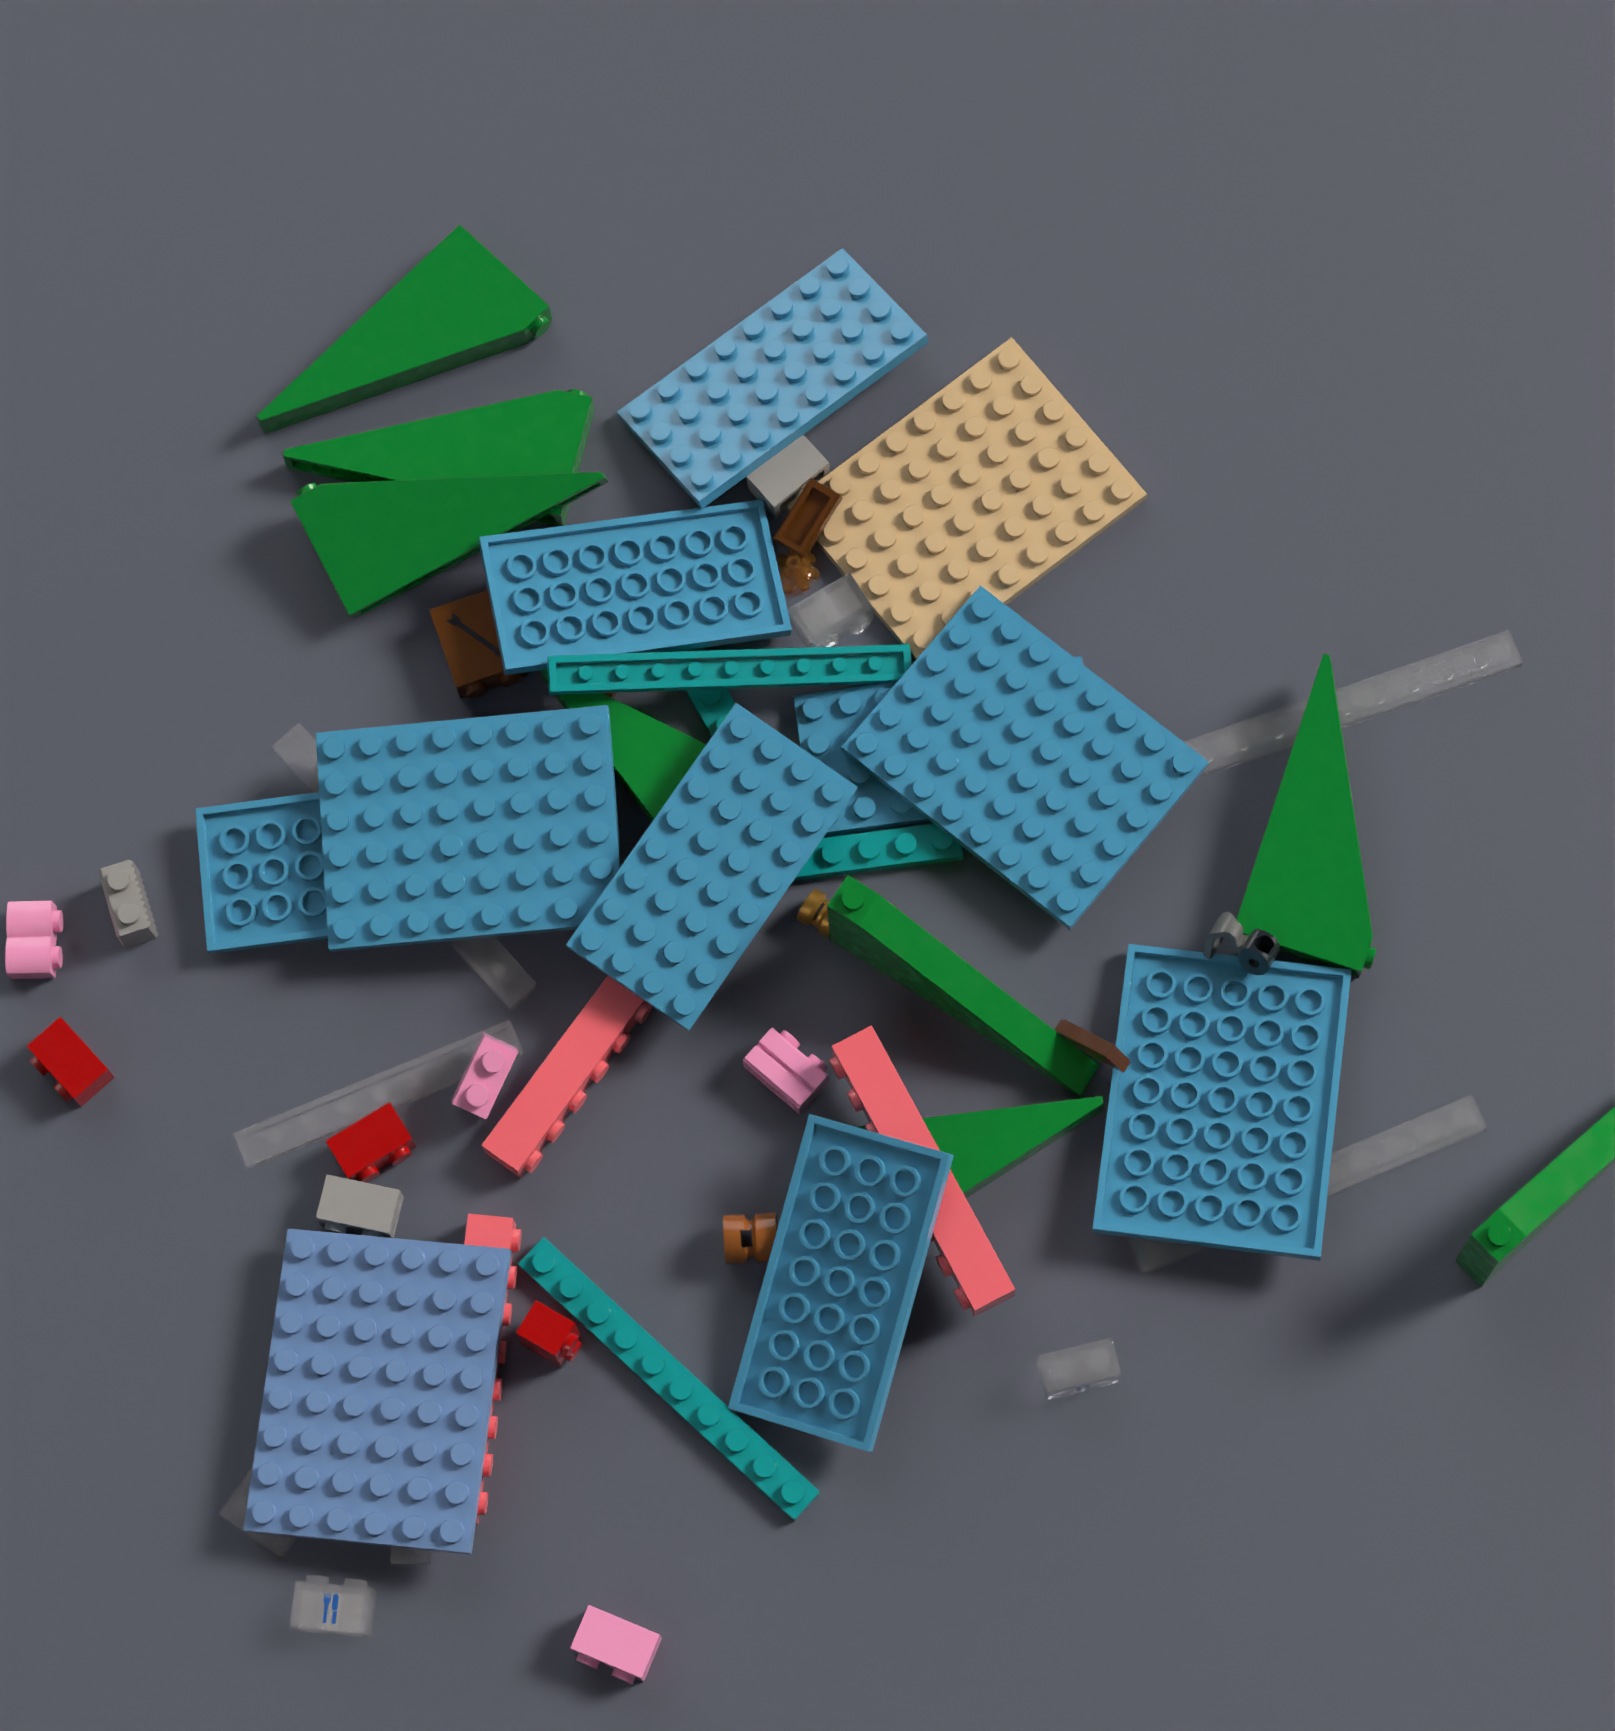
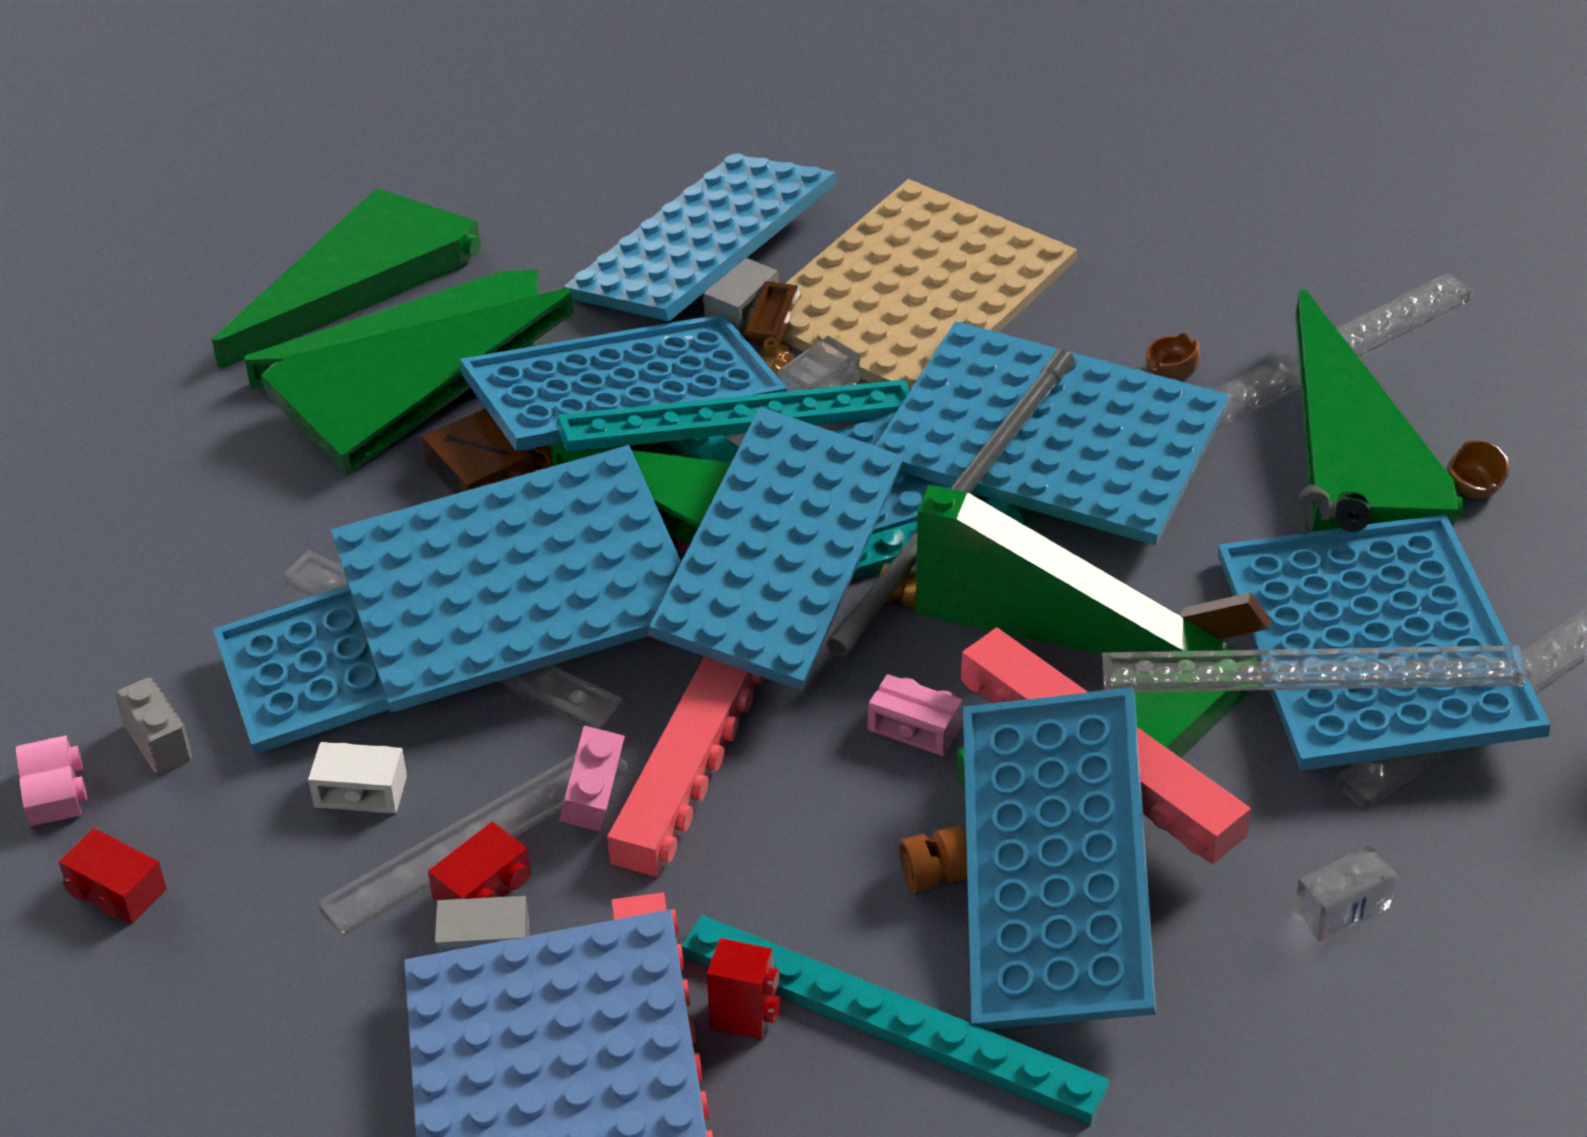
camera: 20 degrees left, 30 degrees down
(292, 1008) = (357, 777): none -> white brick
(1035, 709) = (855, 624): none -> dark grey piece
(1138, 1139) = (1314, 668): none -> clear plate
(1181, 682) = (1173, 356): none -> dark orange hair
(1409, 918) = (1478, 469): none -> dark orange hair

